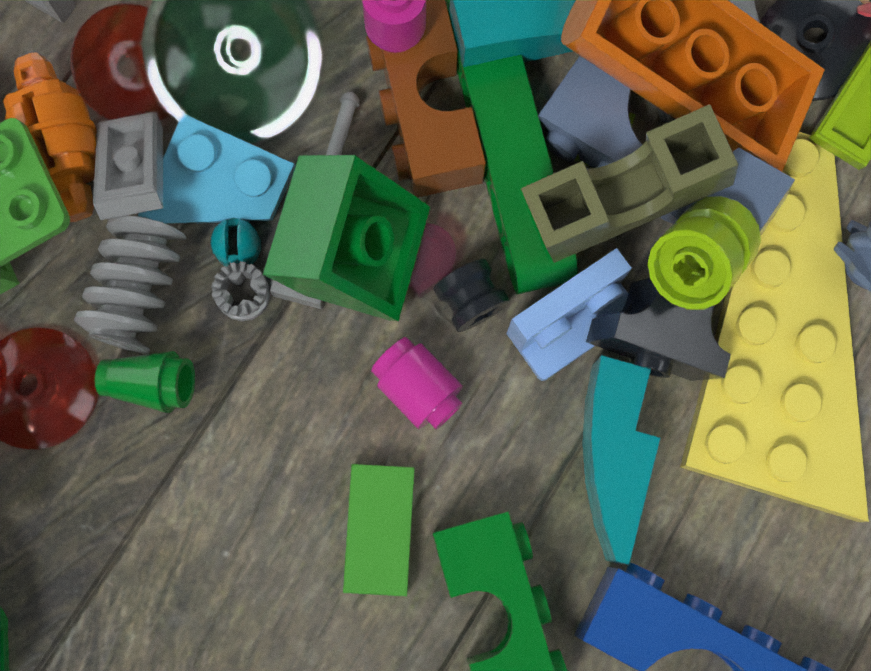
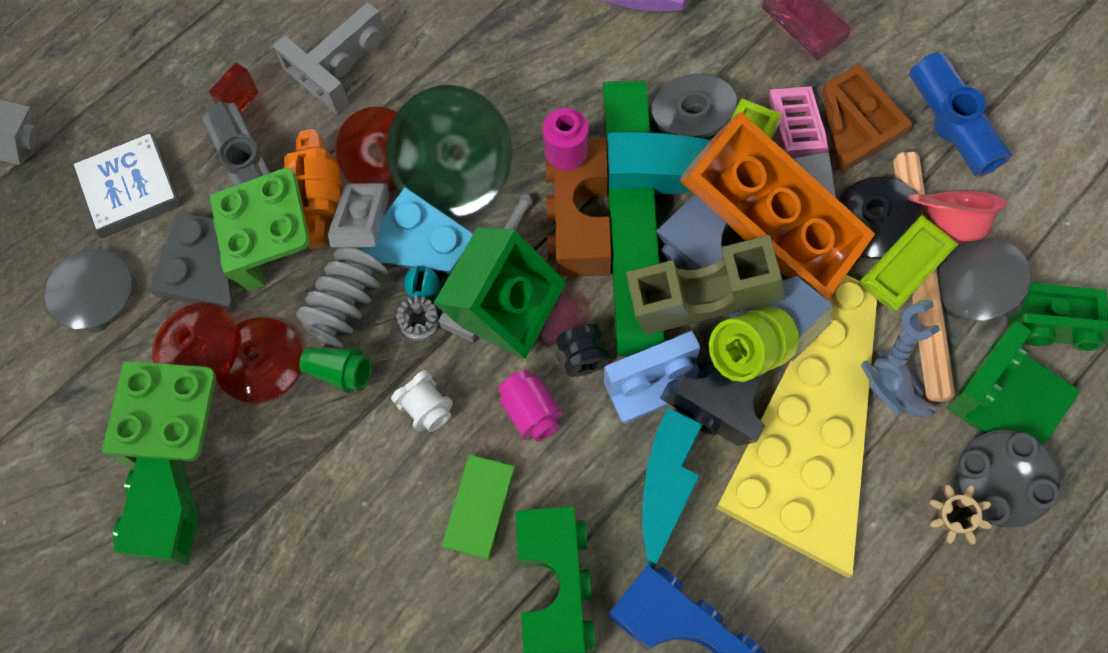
camera: 20 degrees right, 10 degrees down
(276, 407) = (423, 402): none -> white brick

